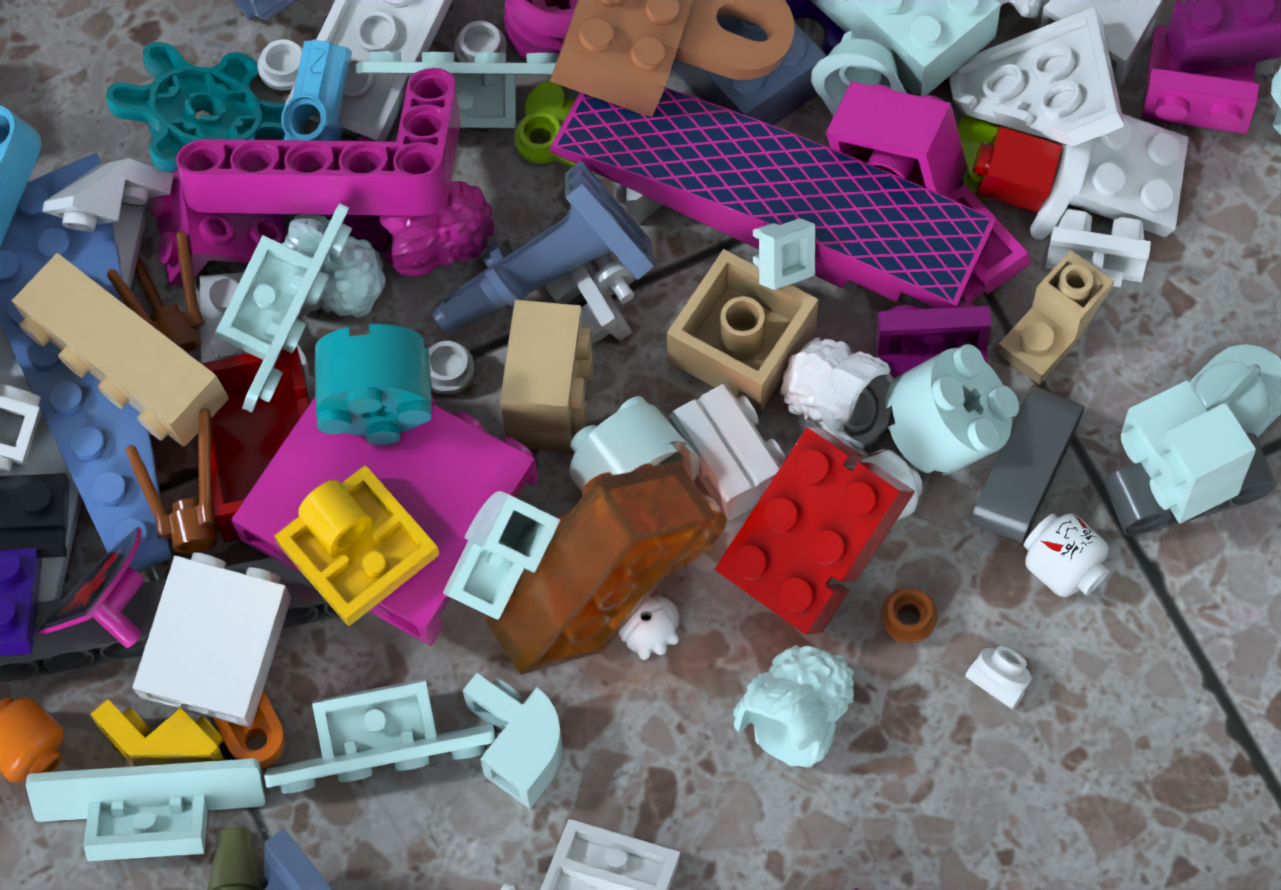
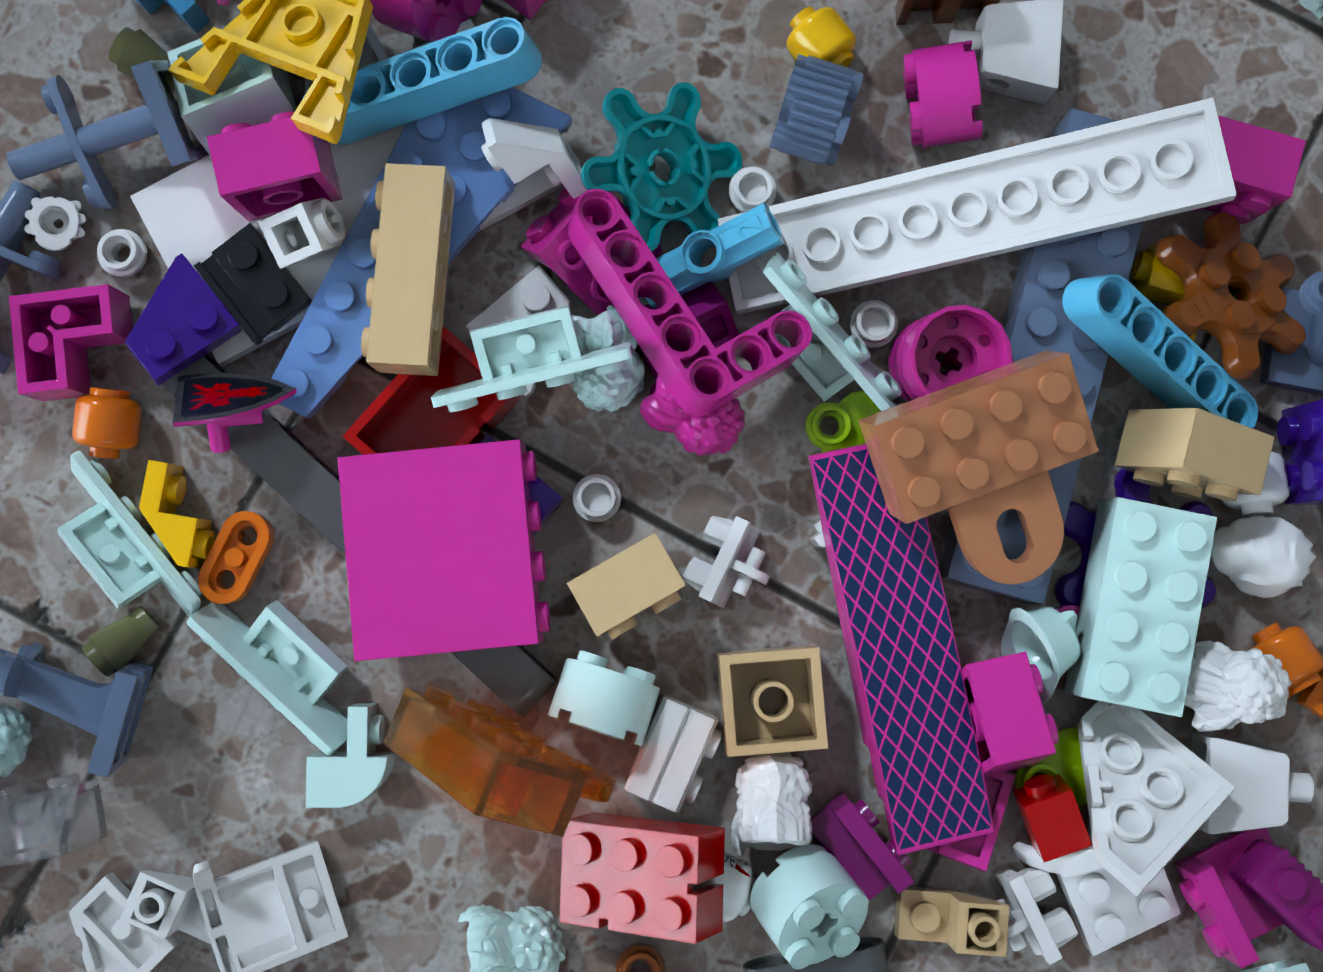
camera: 45 degrees right, 20 degrees up
(170, 320) = (479, 282): dark orange plant -> none
(192, 519) = (334, 417): dark orange plant -> none
(213, 639) = (251, 507): white brick -> none
(355, 543) = (371, 571): yellow plate -> none
(372, 383) = (490, 496): teal brick -> none
(499, 546) = (438, 683): light aqua brick -> none
(588, 231) = (768, 539): sand blue piece -> none
(785, 253) = (842, 701): light aqua tile -> none

